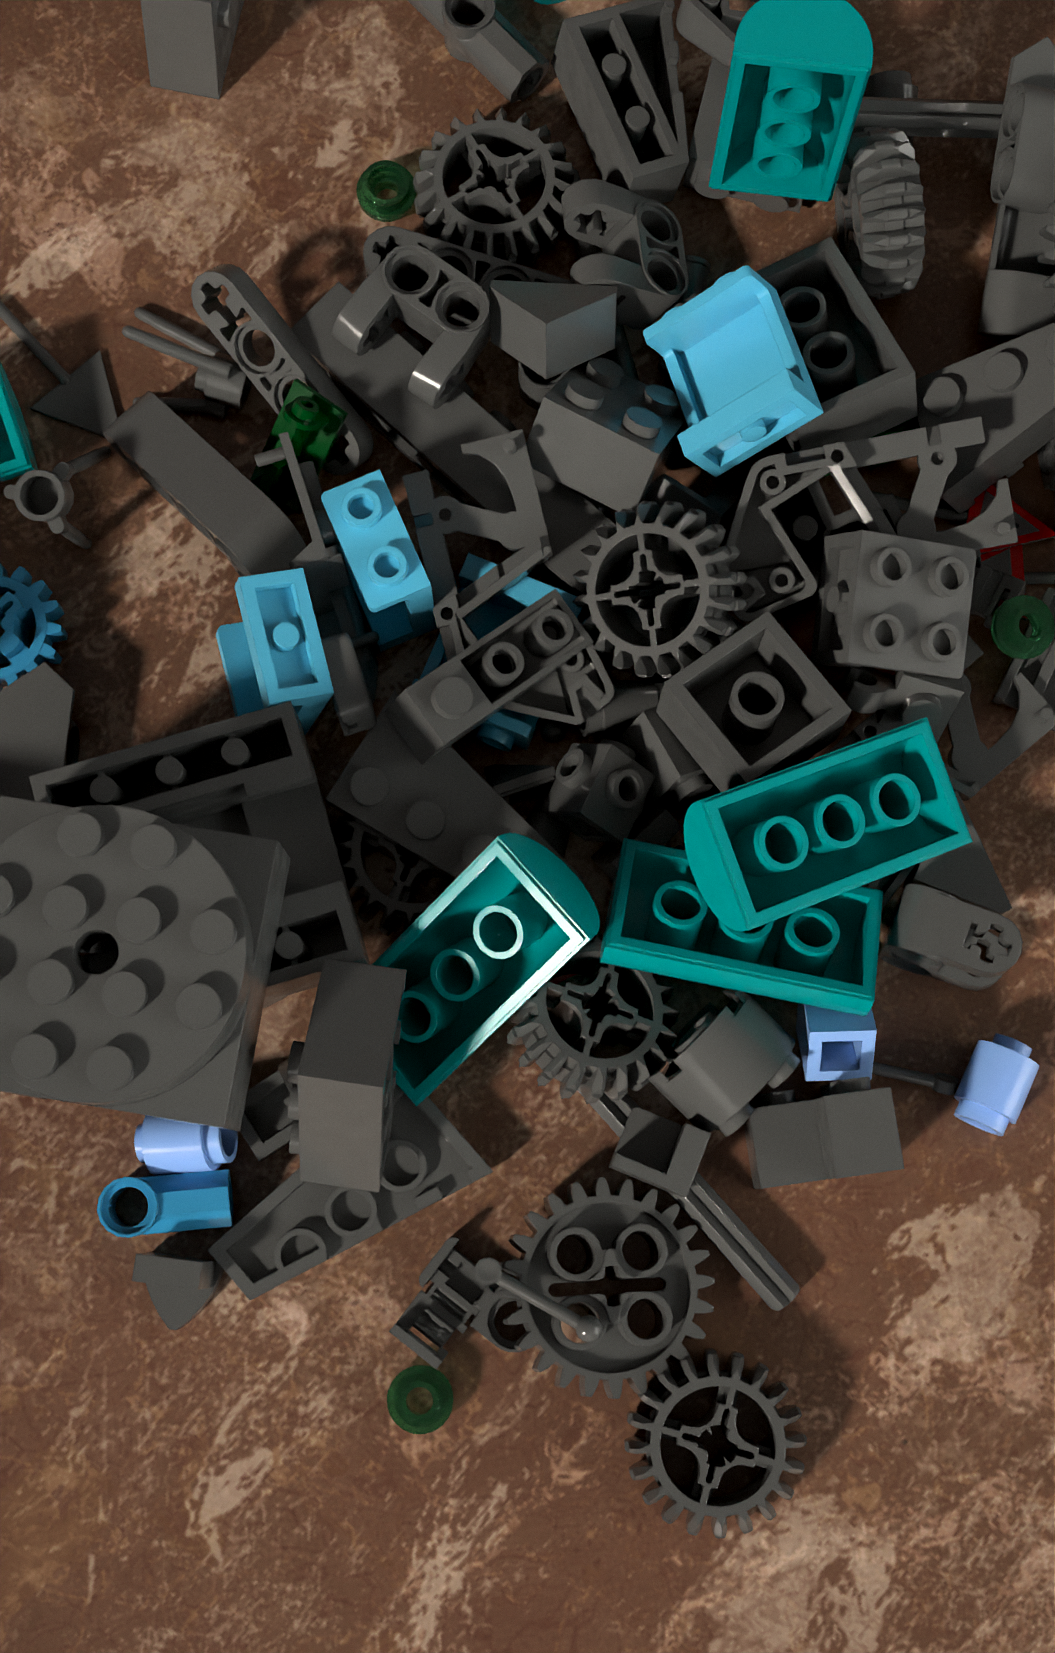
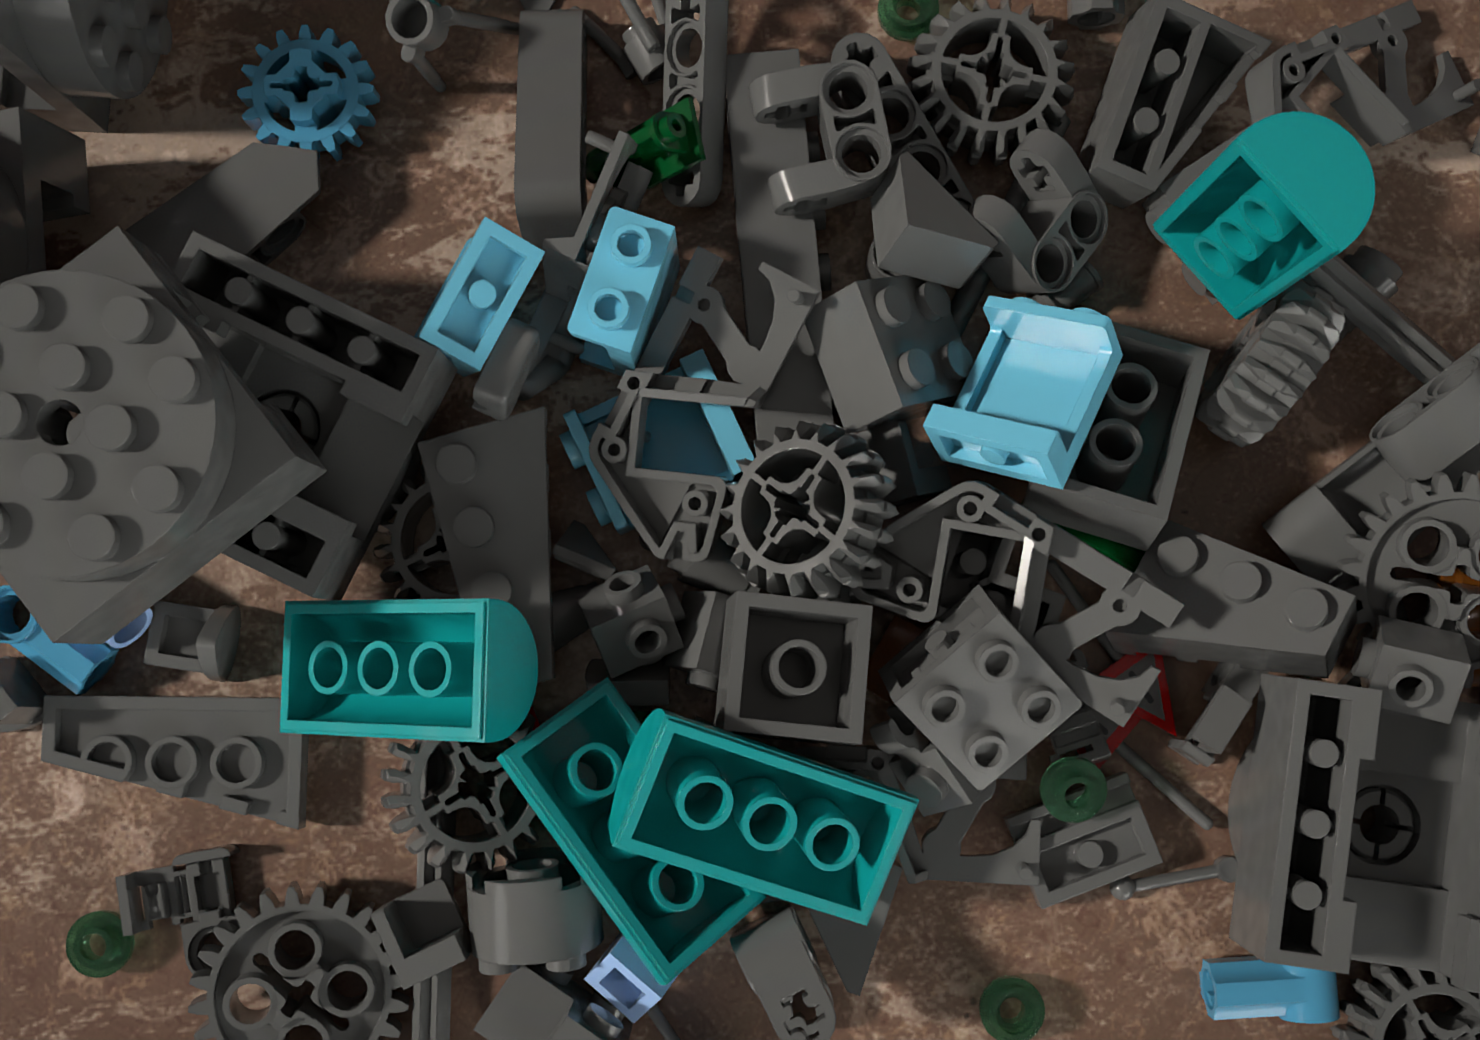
camera: 40 degrees right, 5 degrees up
(346, 1076) = (219, 673): dark grey wedge -> none
(487, 676) = (618, 462): dark grey slope -> none
(490, 1271) = (217, 906): dark grey hinge -> none

